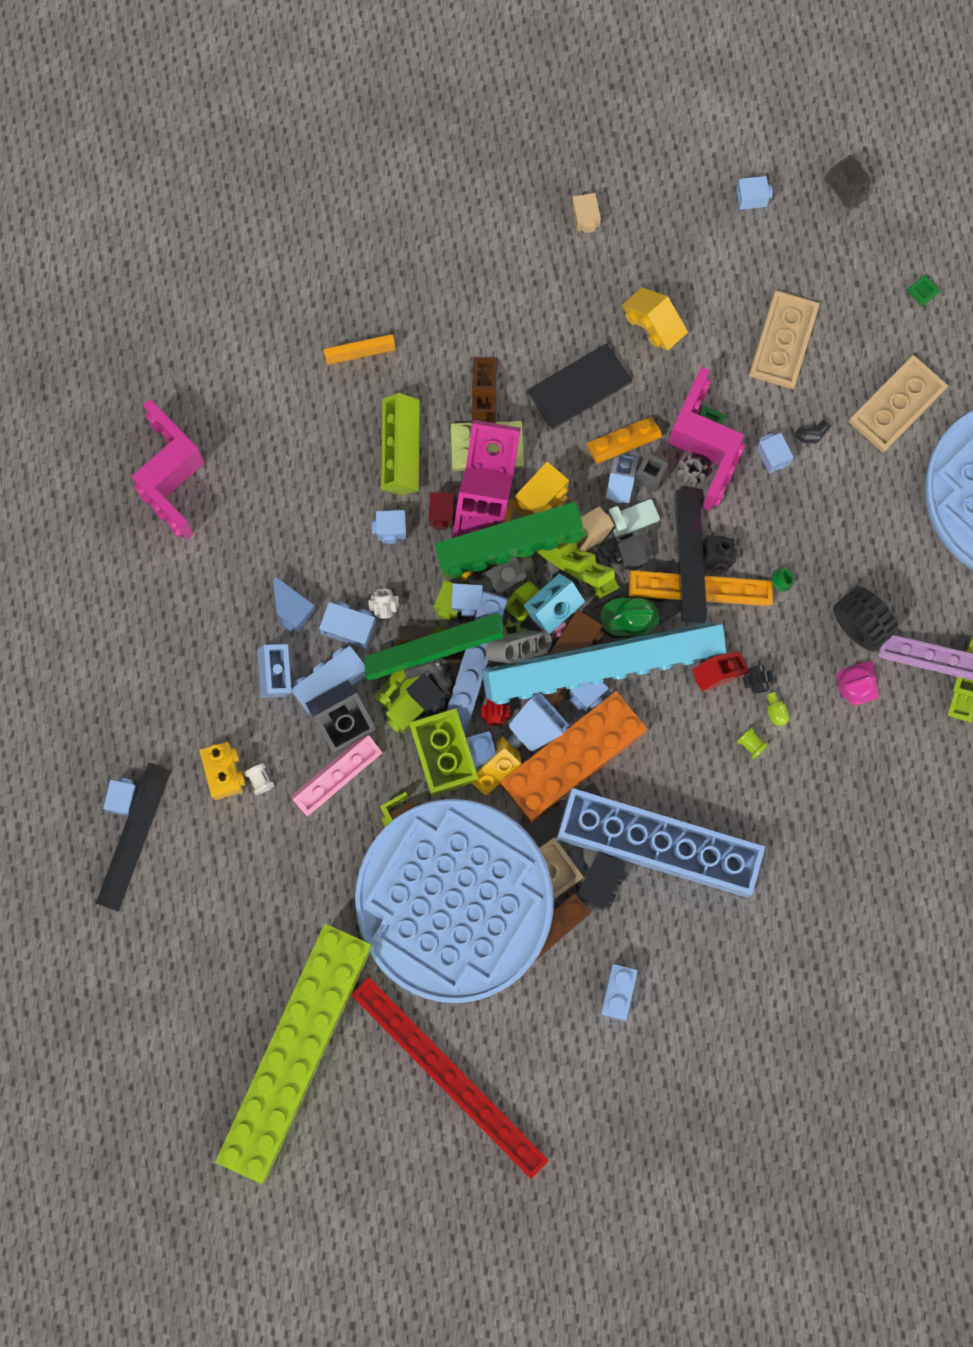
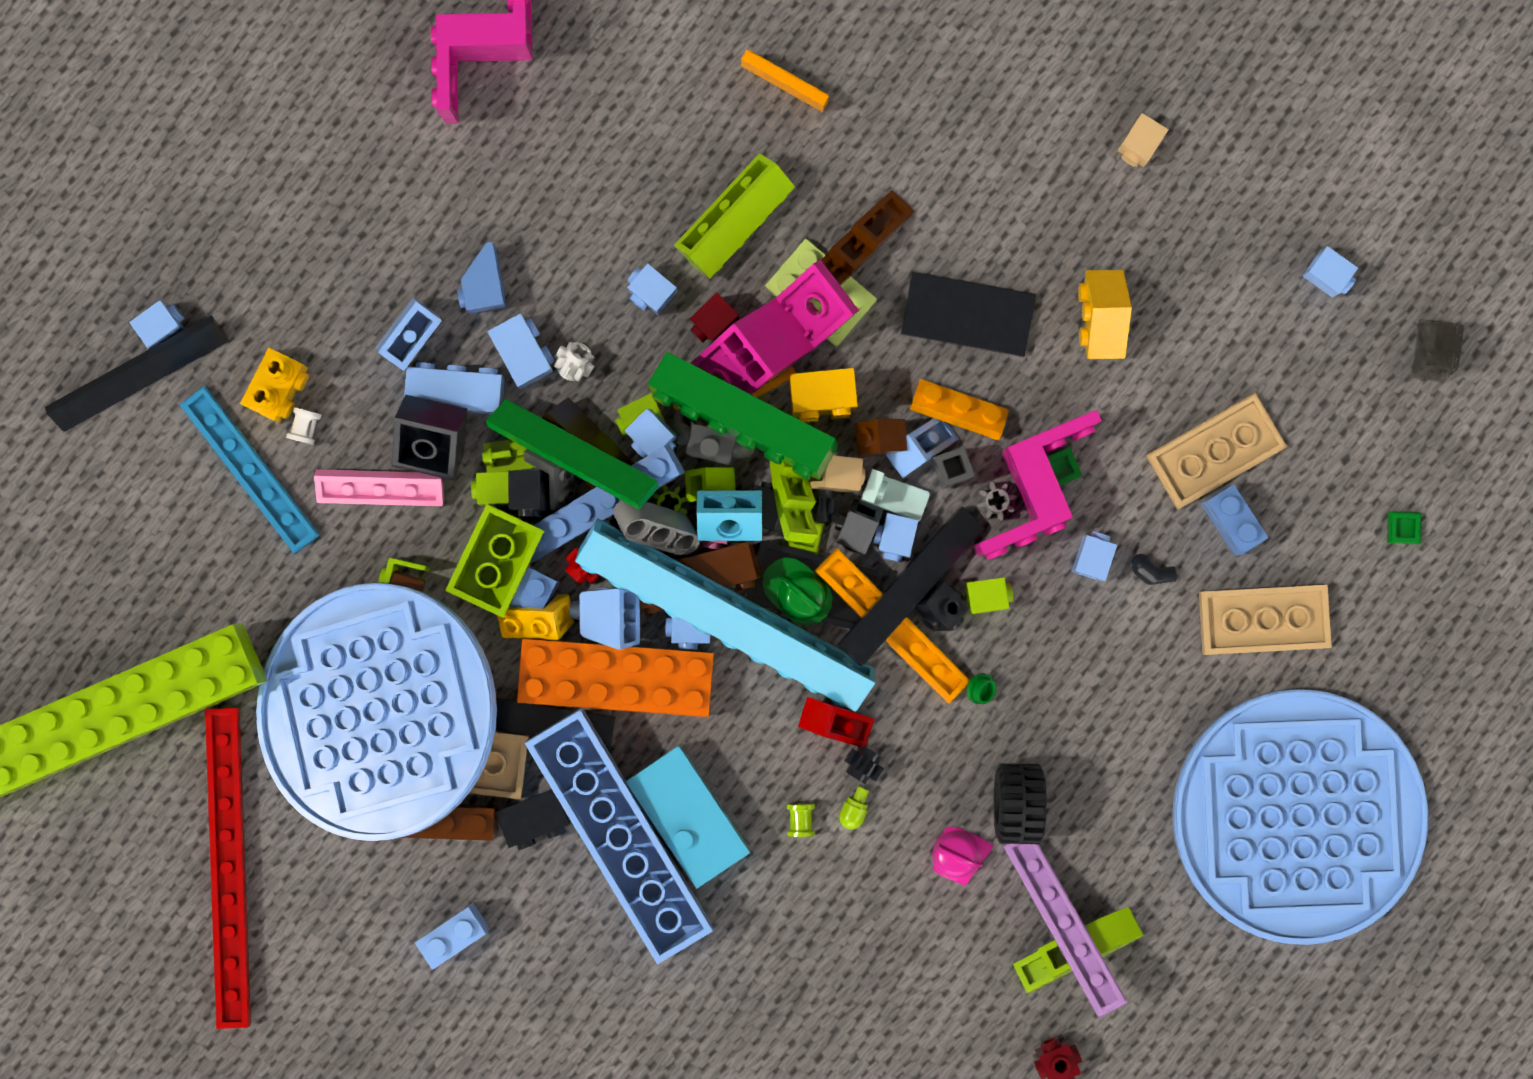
camera: 40 degrees right, 10 degrees up
(249, 833) = (249, 469): none -> dark azure tile
(595, 489) = (880, 437): none -> reddish brown slope
(656, 538) = (895, 537): none -> light blue brick
(689, 797) = (688, 816): none -> medium azure brick
(737, 524) = (988, 595): none -> lime brick
(830, 365) = (1234, 520): none -> medium blue brick

